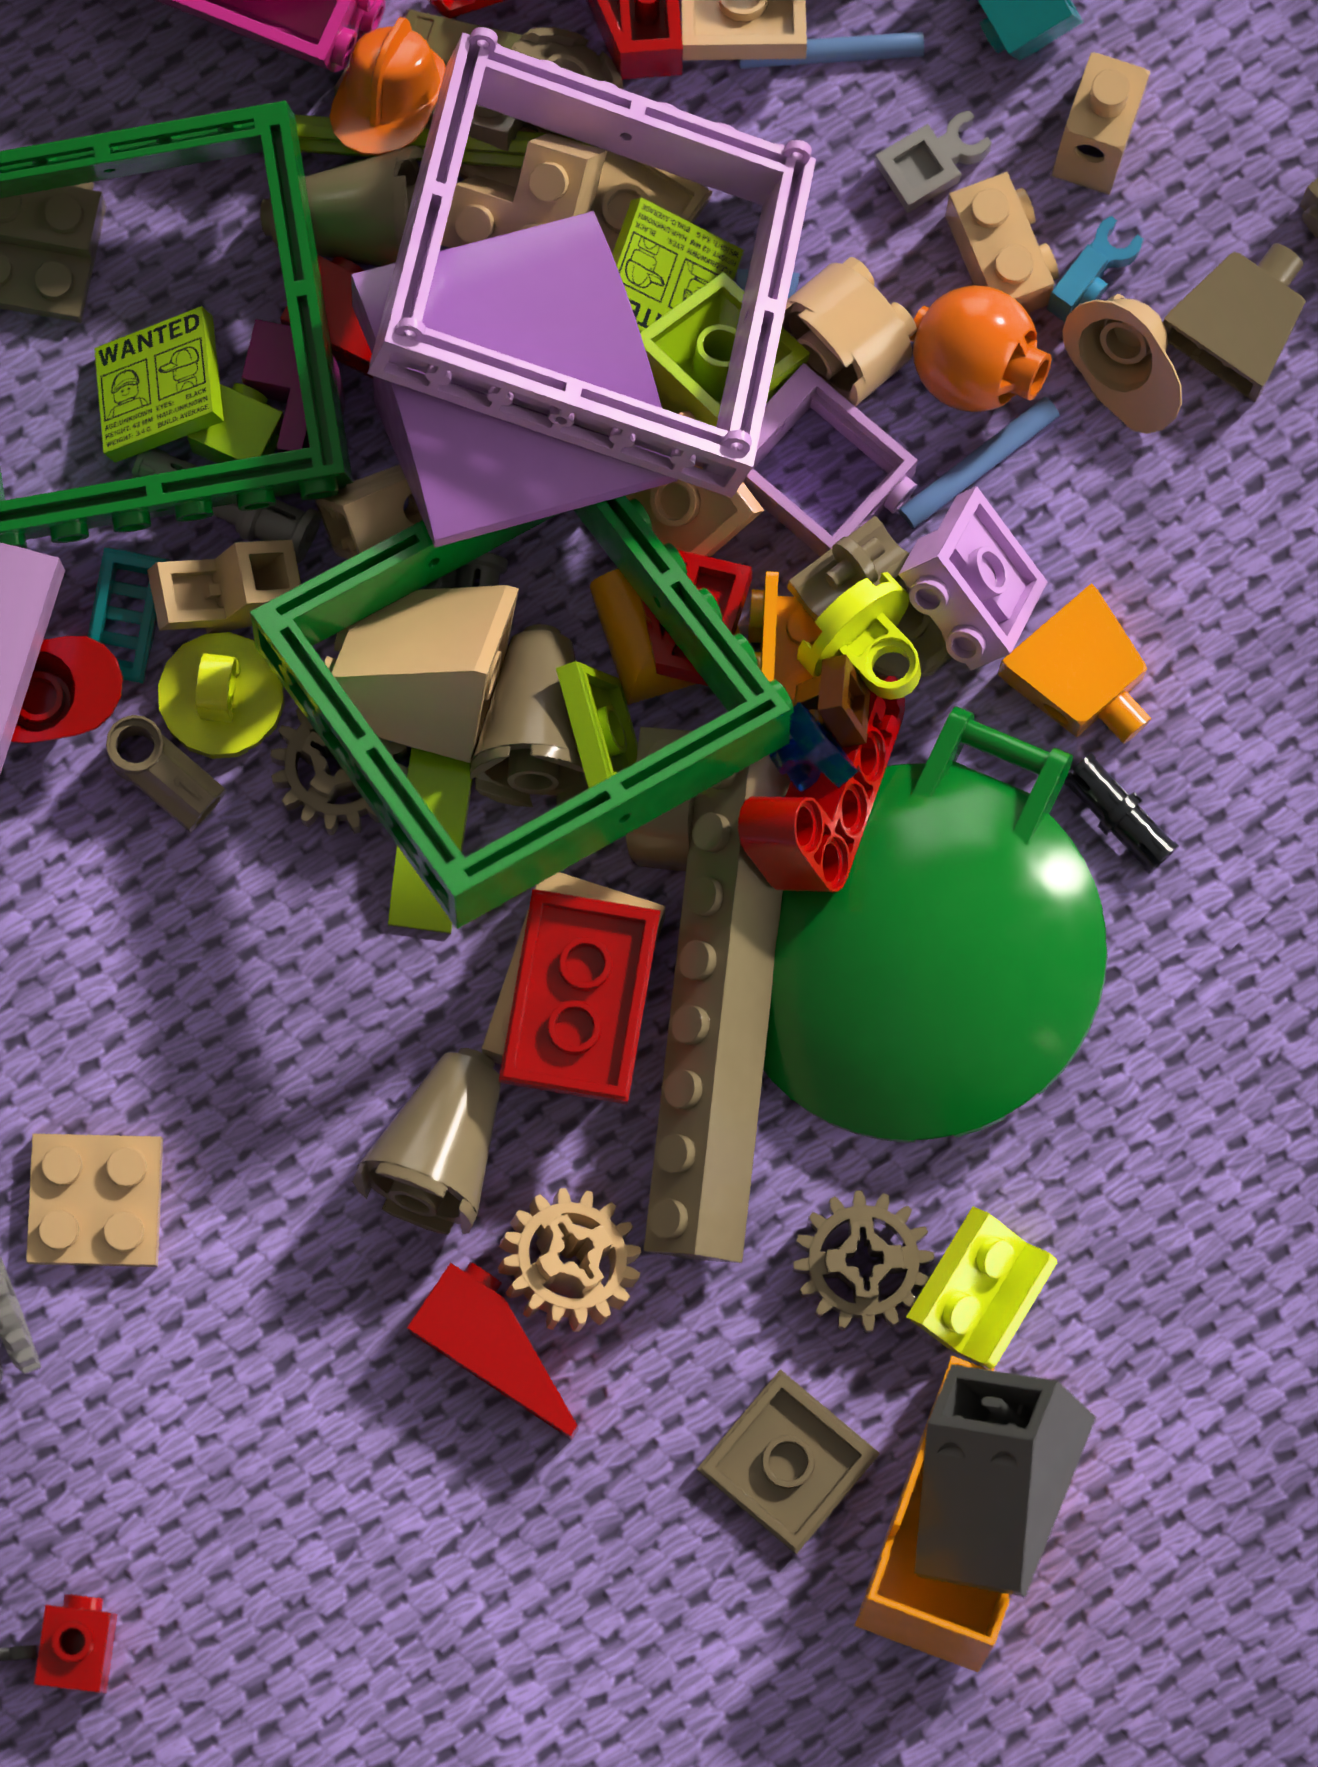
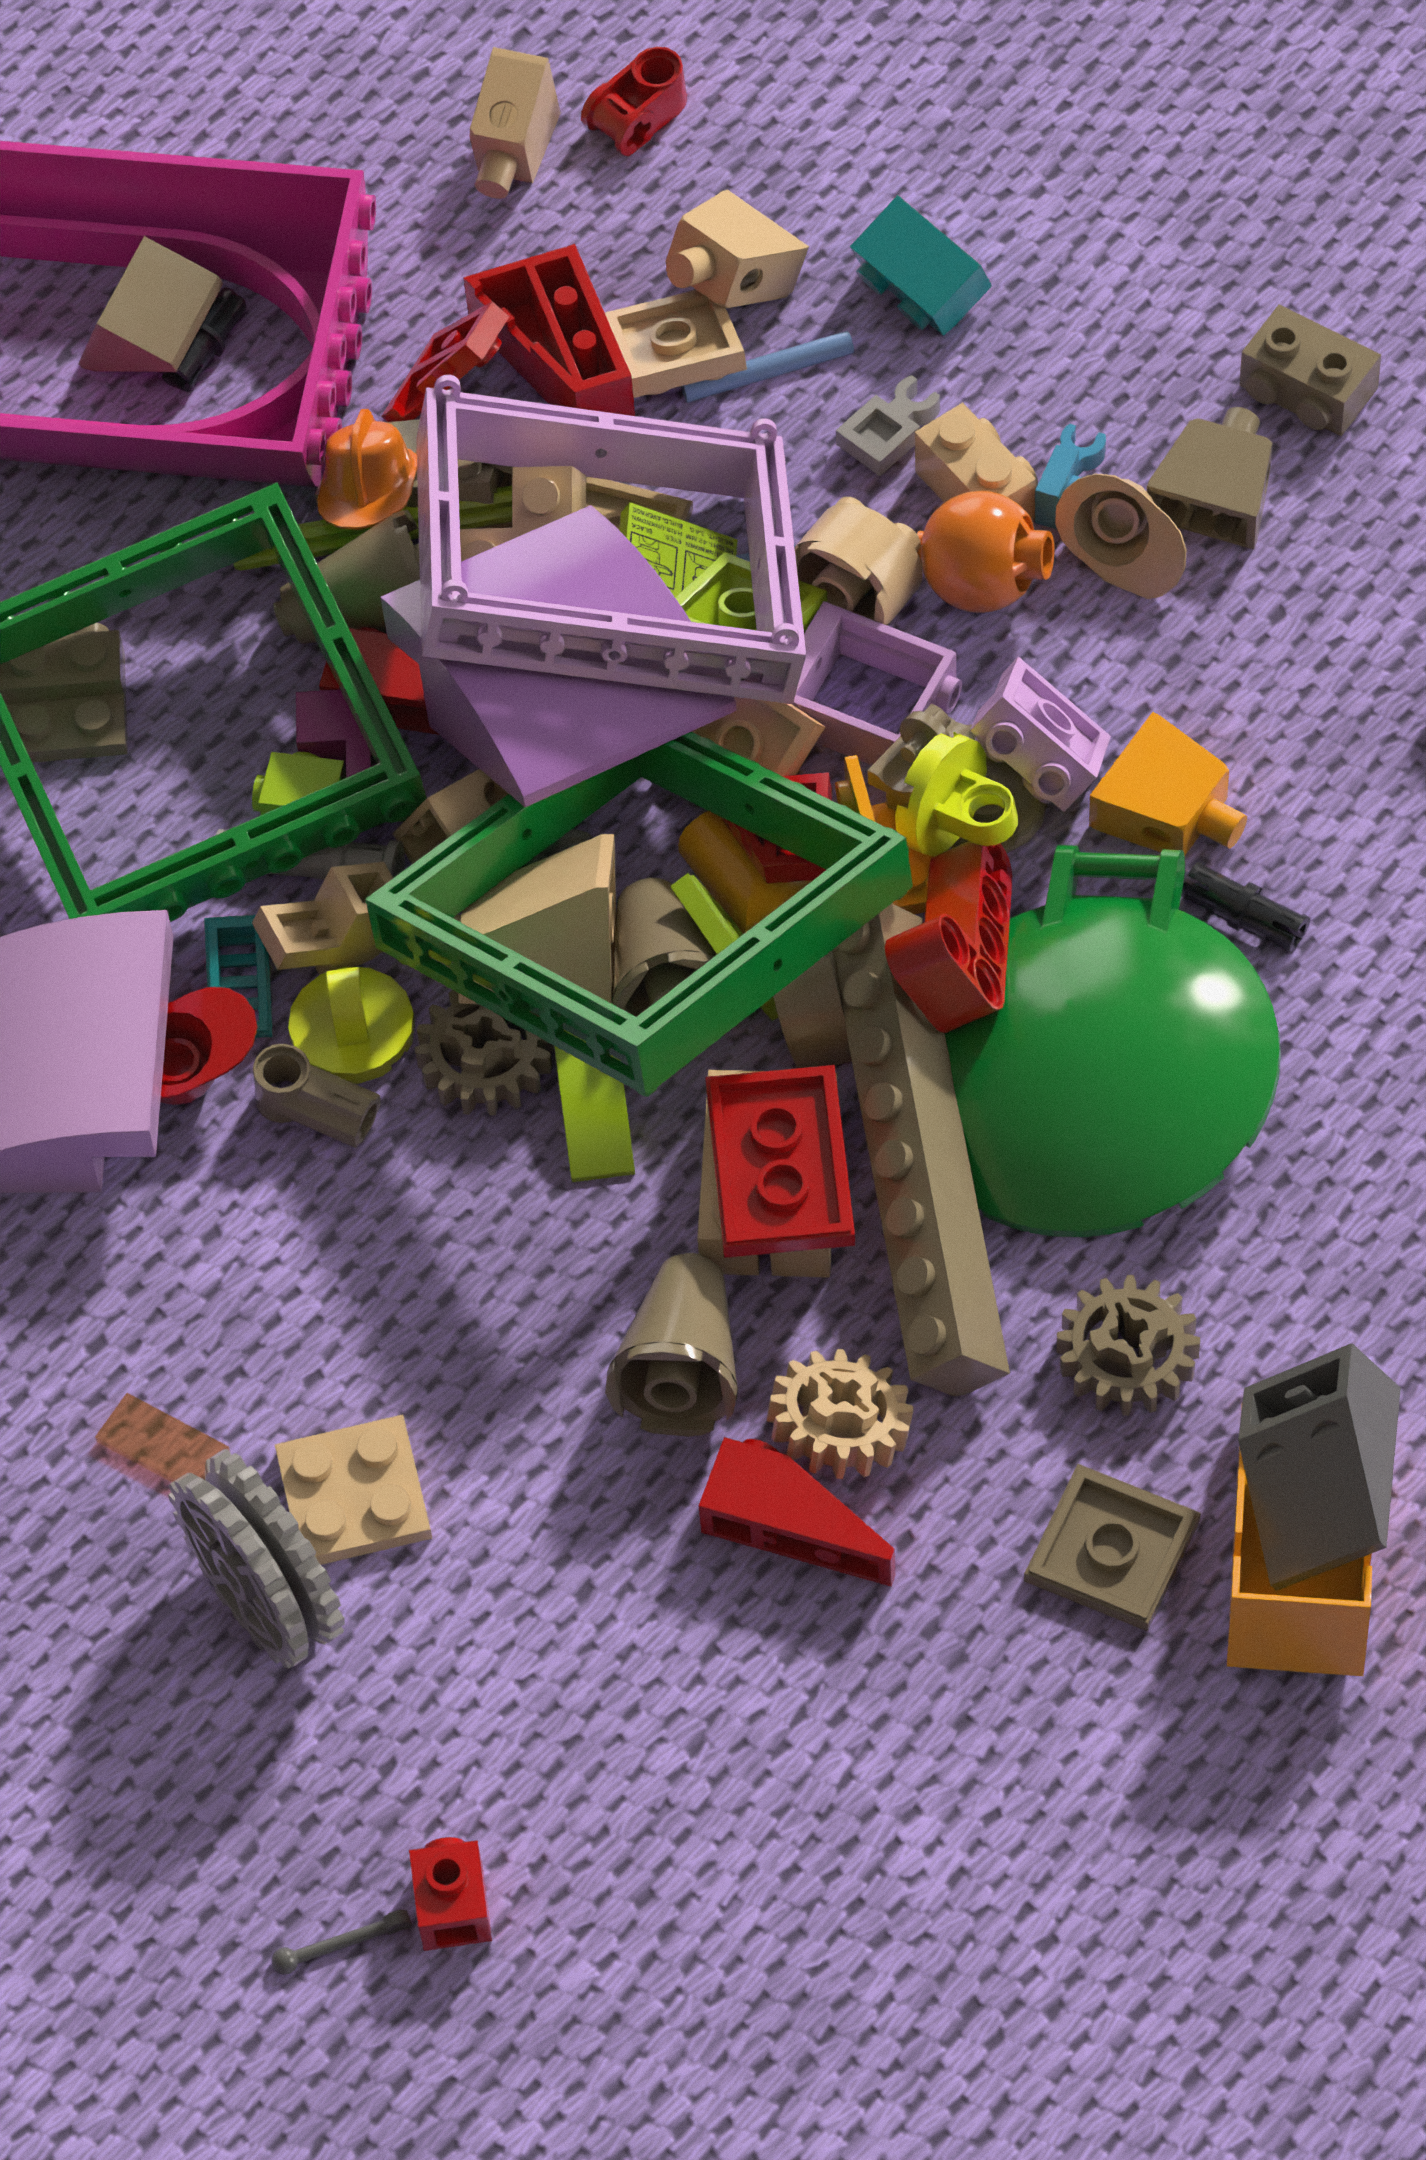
camera: 10 degrees left, 20 degrees down
(158, 384) = (218, 771): lime tile -> none
(812, 752) = (938, 888): tile -> none
(838, 700) = (950, 850): reddish brown tile -> none
(979, 462) = (1022, 645): medium blue bar -> none
(981, 1289) = (1248, 1331): neon yellow bracket -> none
(1100, 118) = (1034, 332): tan torso -> none

